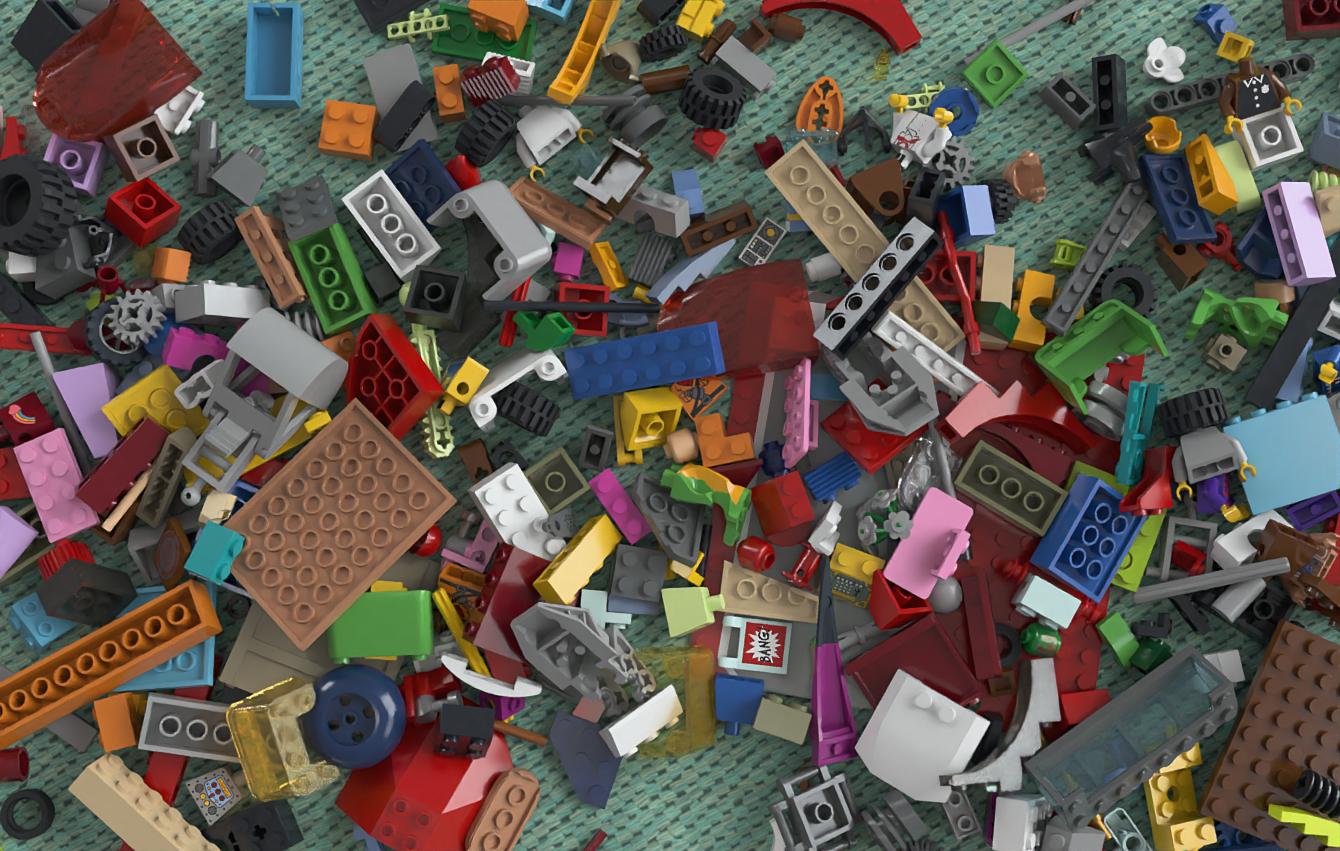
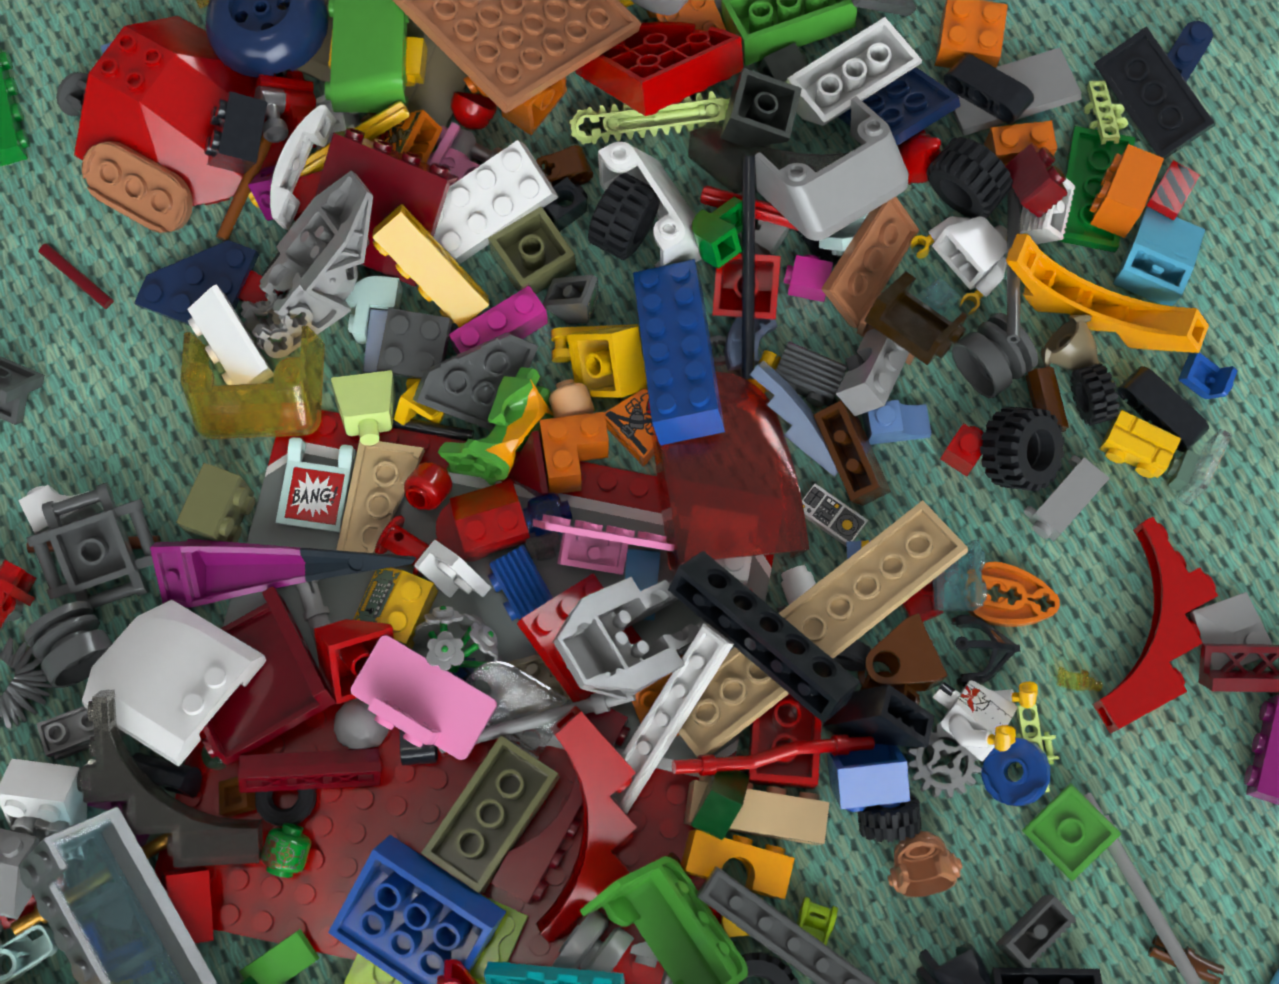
camera: 95 degrees right, 10 degrees down
(460, 383) = (666, 147): yellow torso -> none
(561, 524) = (478, 254): dark grey piece -> none
(608, 266) = (803, 324): light orange plate -> none
(716, 40) = (1118, 478): reddish brown axle -> none
(737, 700) = (252, 455): blue torso -> none
(755, 38) = (1104, 512): reddish brown panel -> none
(769, 151) = (958, 522): dark red tile -> none
(786, 27) = (1124, 555): reddish brown brick -> none
(1045, 601) = (335, 857): light aqua brick -> none

